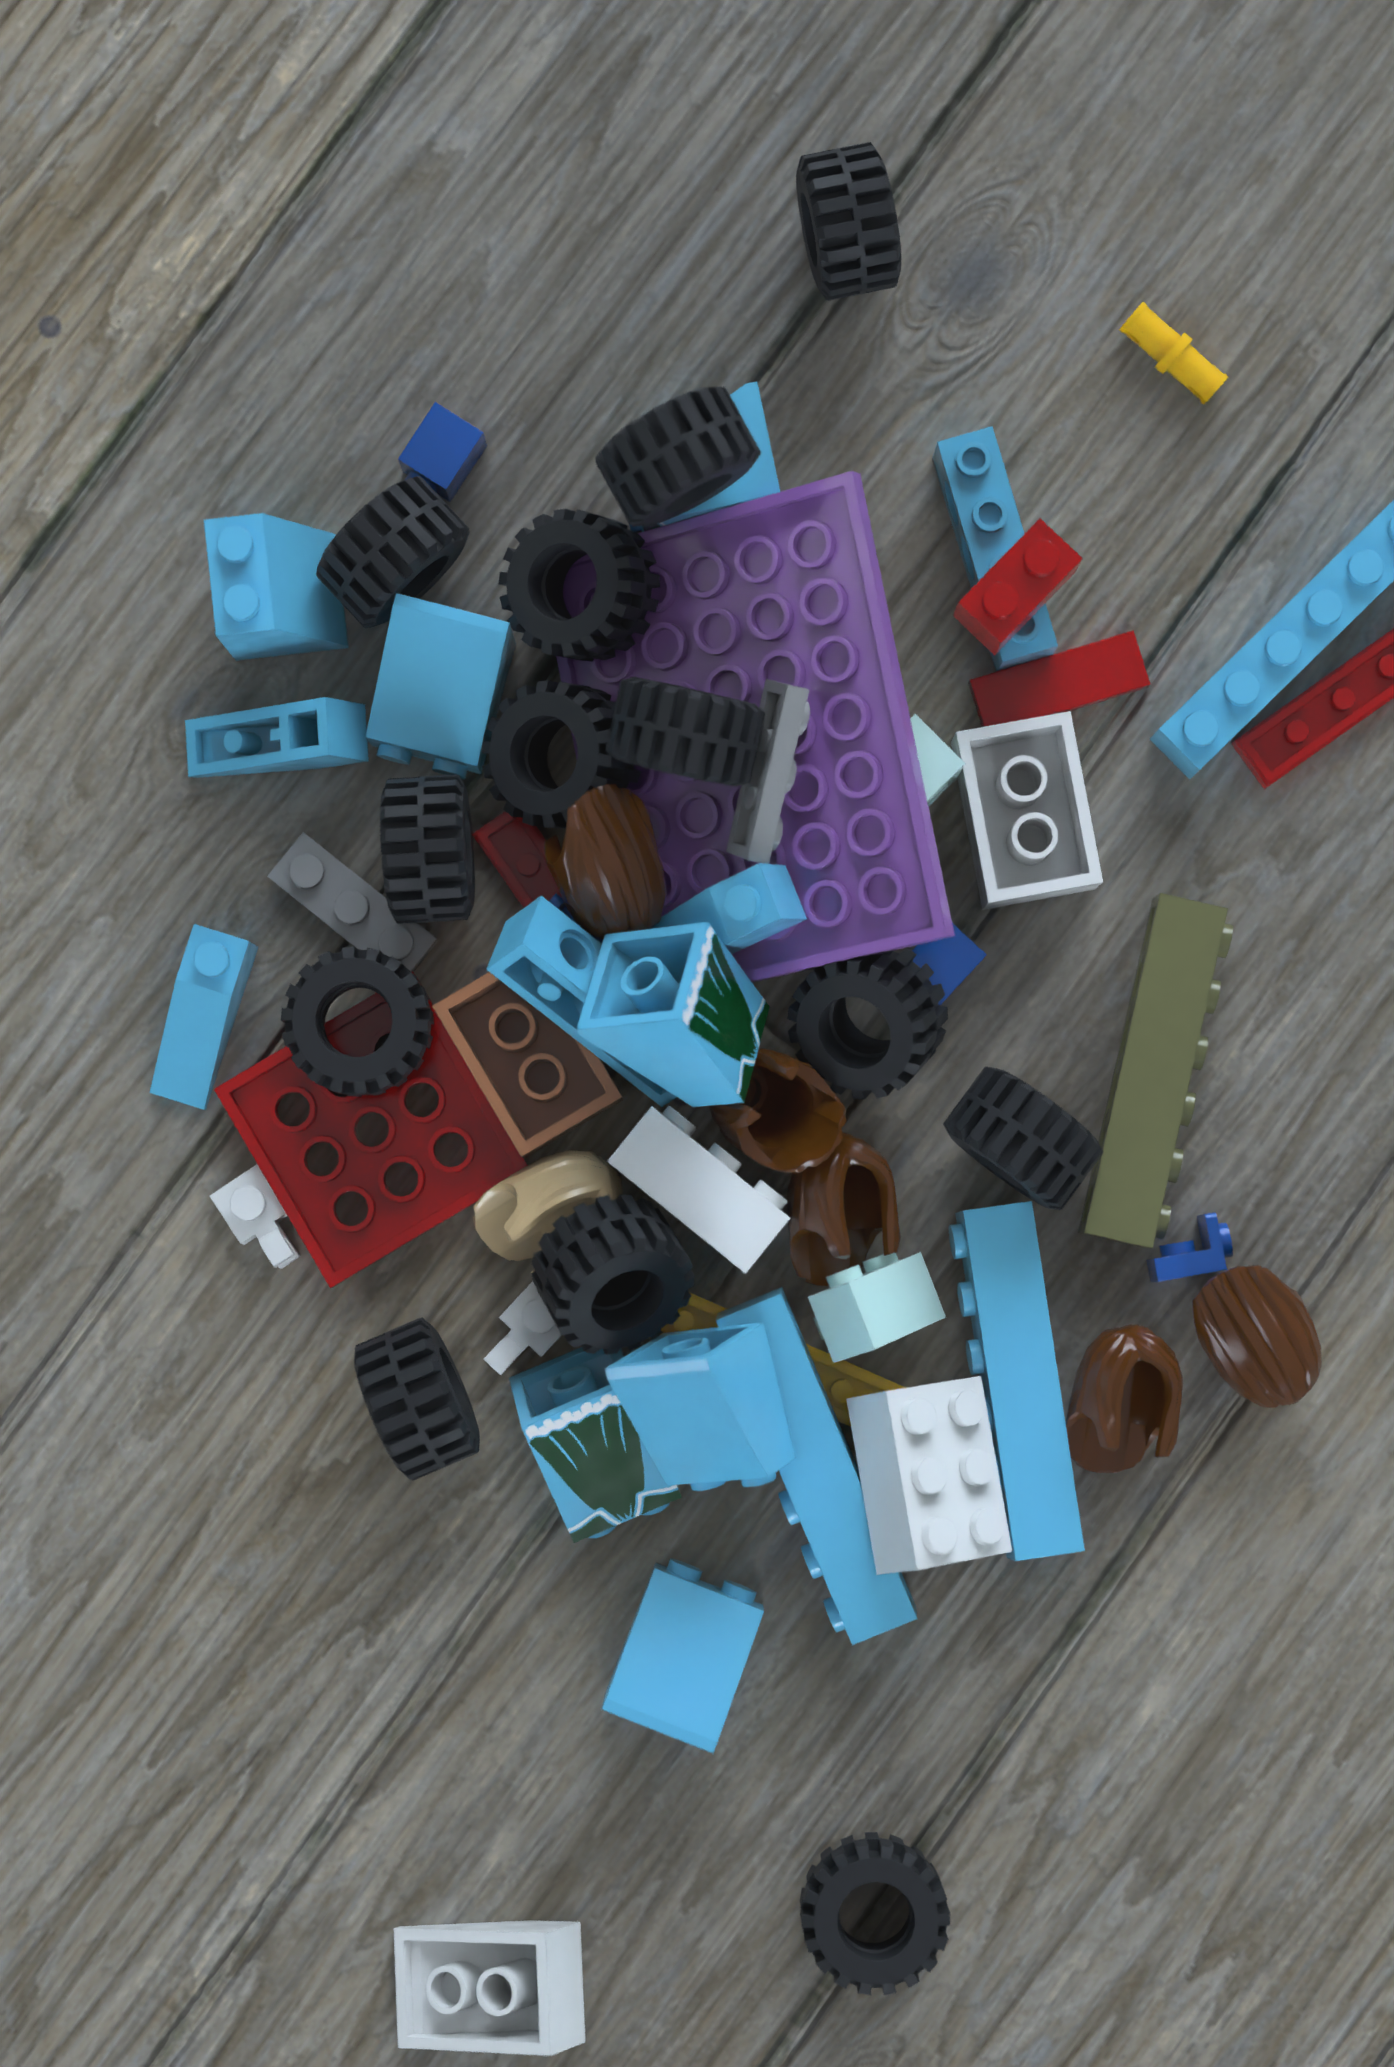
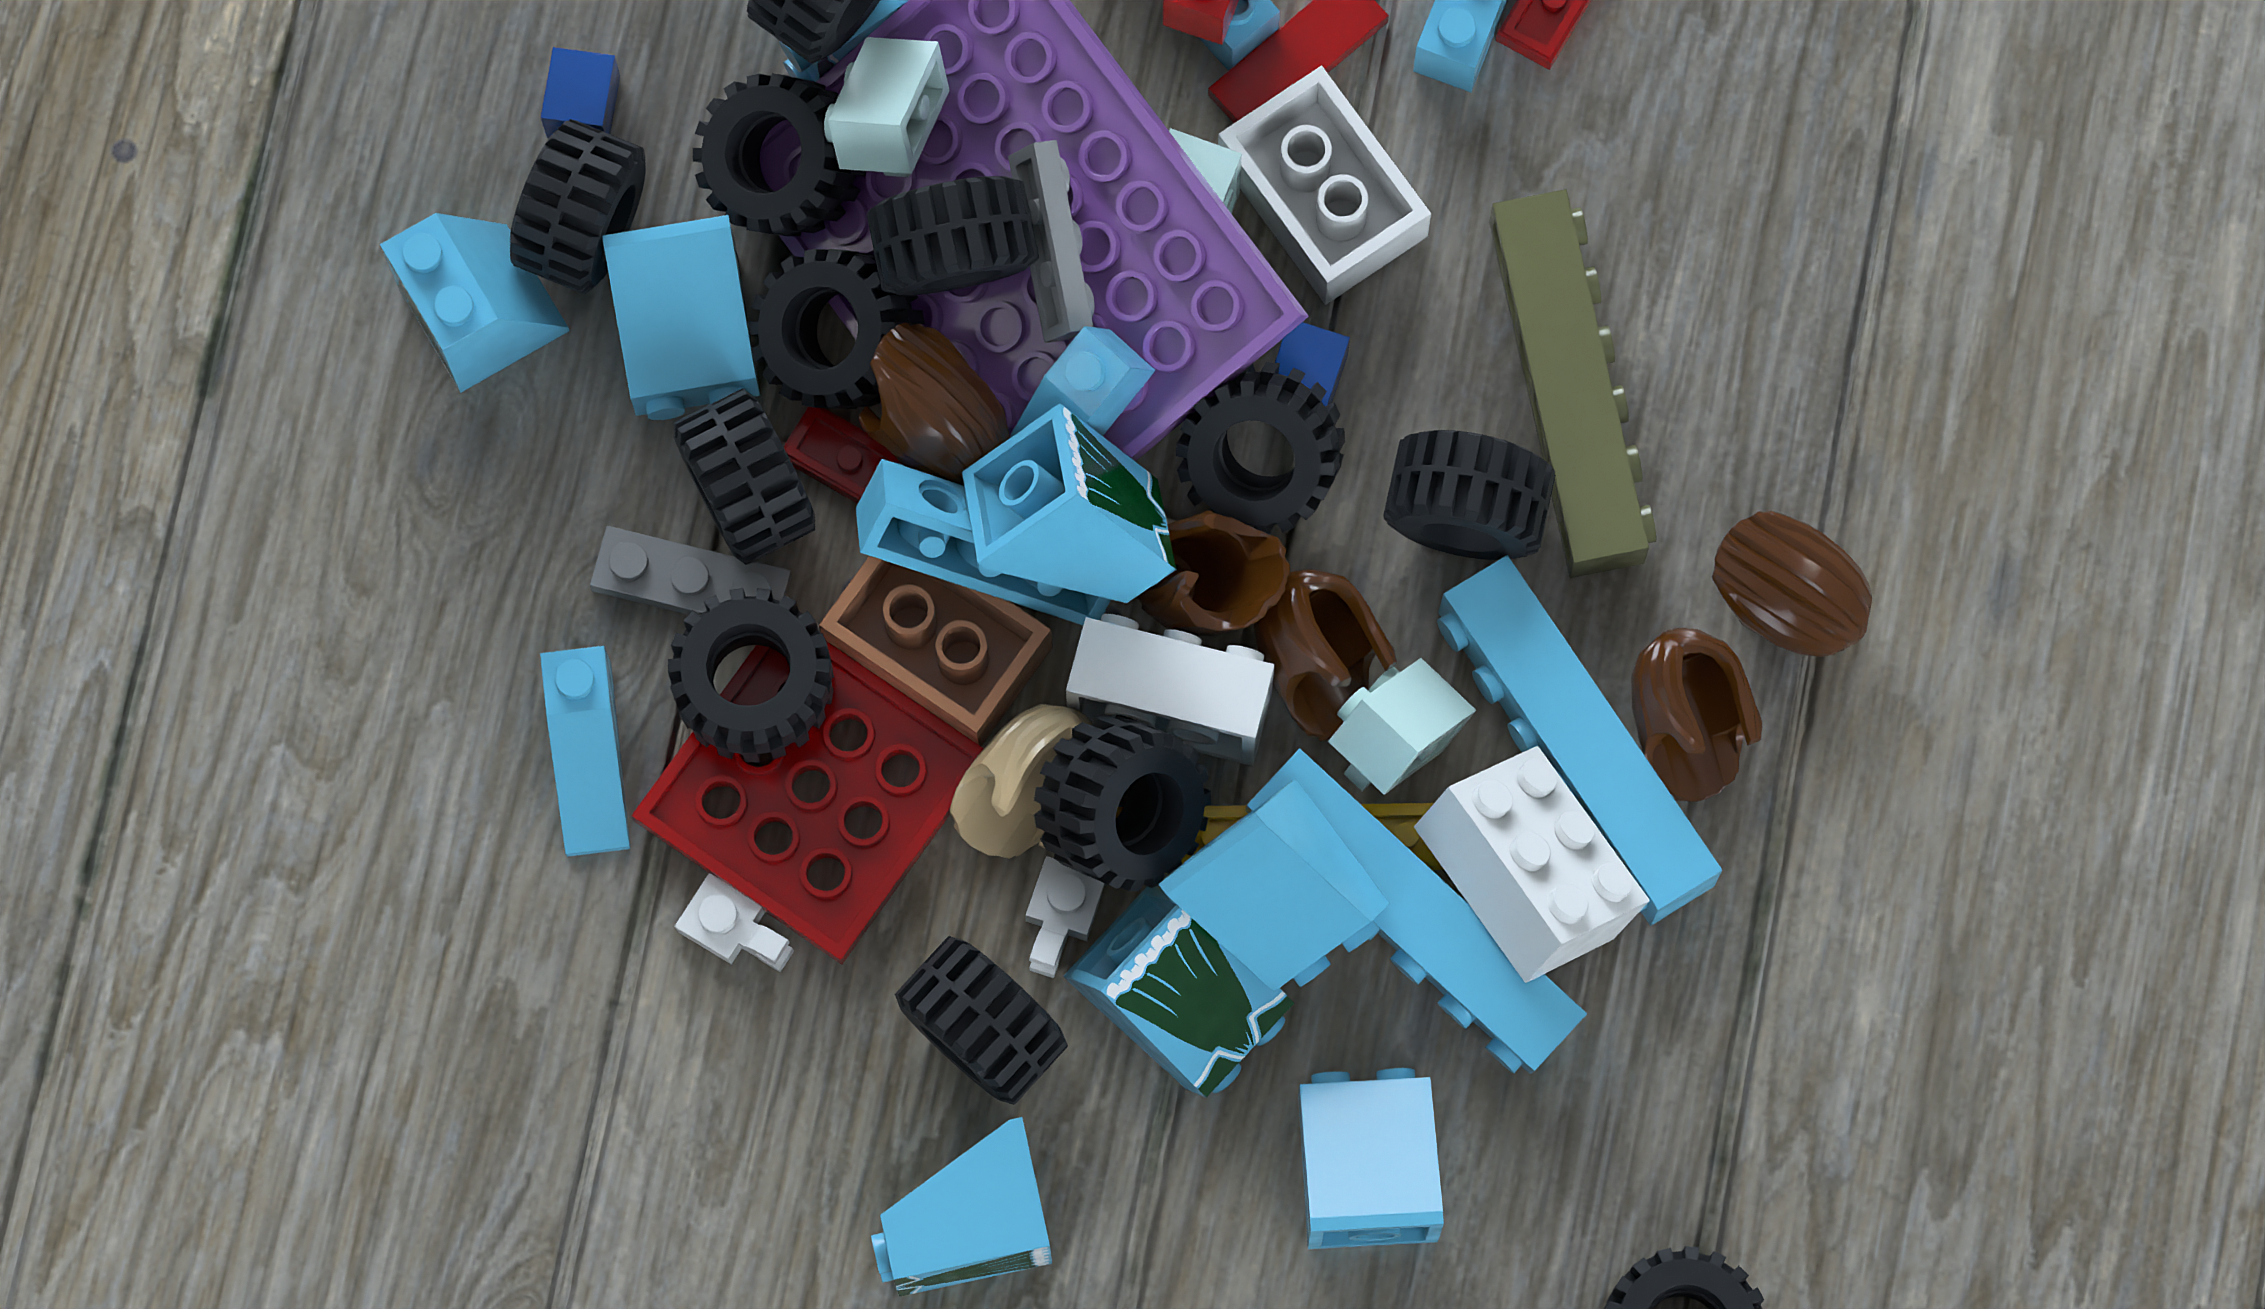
camera: 25 degrees left, 10 degrees down
(278, 738) = (540, 444): medium azure slope -> none
(333, 1559) = (967, 1219): none -> medium azure slope
(682, 591) = (887, 106): none -> light aqua brick
(1183, 1260) = (1686, 552): blue bracket -> none

